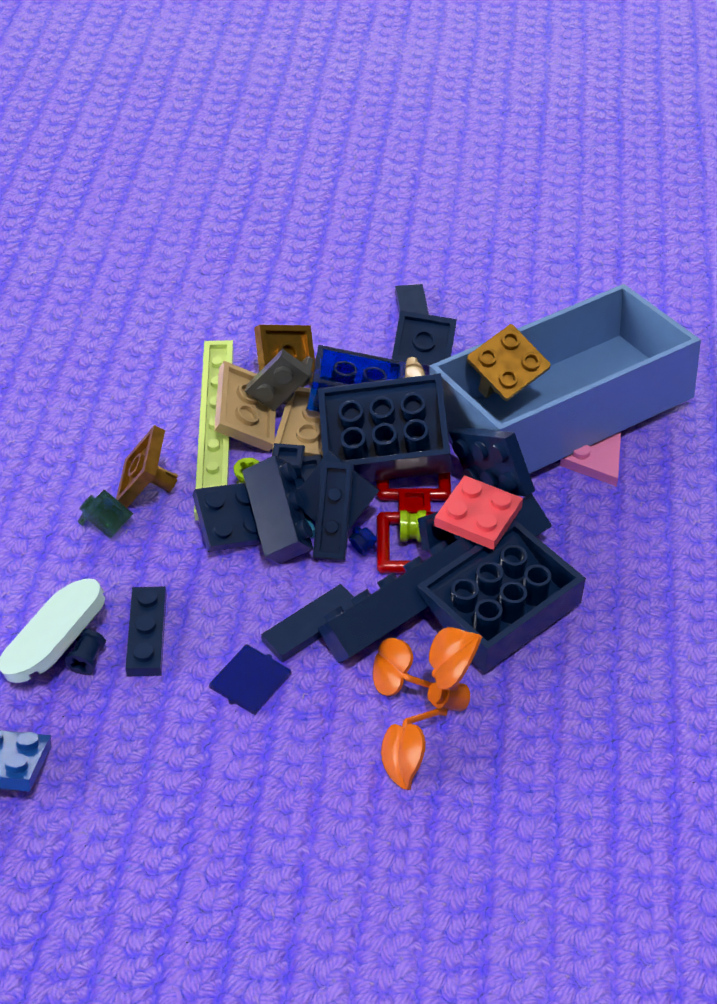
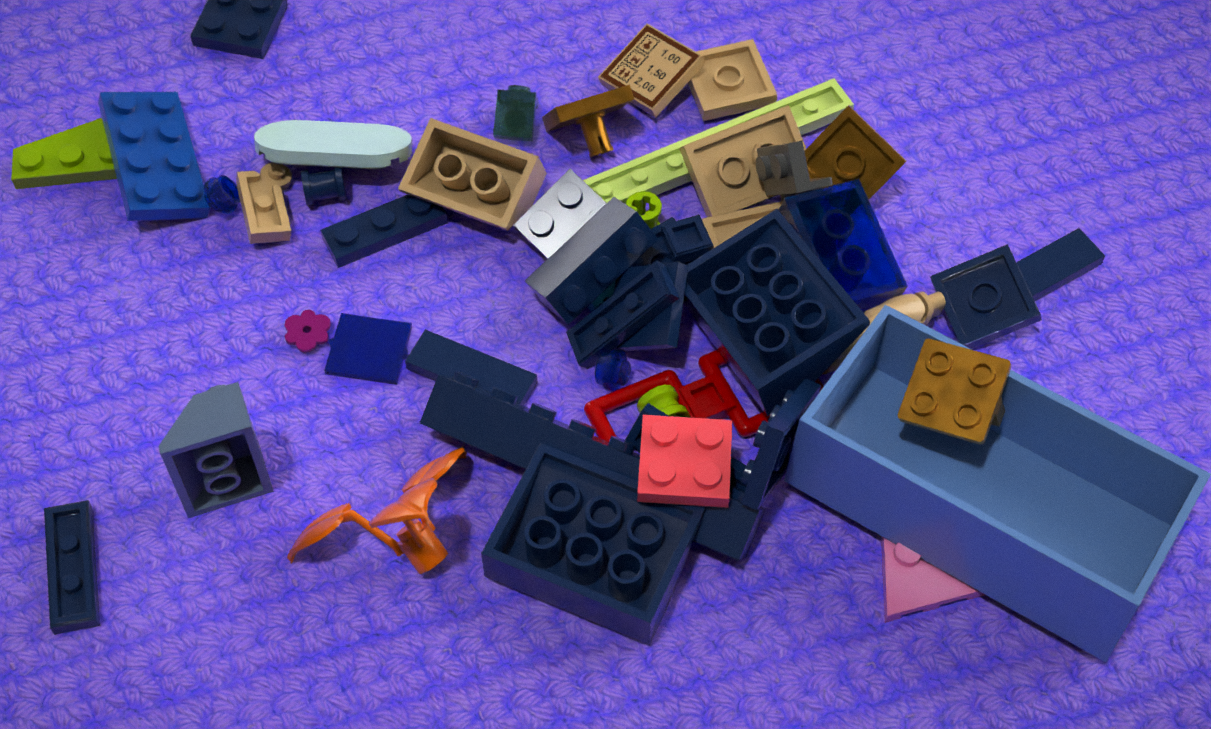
camera: 65 degrees right, 10 degrees up
(45, 721) = (221, 194): none -> clear blue plate
(74, 695) = (264, 203): none -> tan hinge
(122, 424) = (653, 68): none -> tile
(150, 552) = (473, 175): none -> tan slope
(161, 393) = (731, 81): none -> tan plate
(212, 709) = (307, 330): none -> magenta plant
(314, 774) = (215, 452): none -> sand blue slope
(336, 941) = (71, 567): none -> dark blue tile

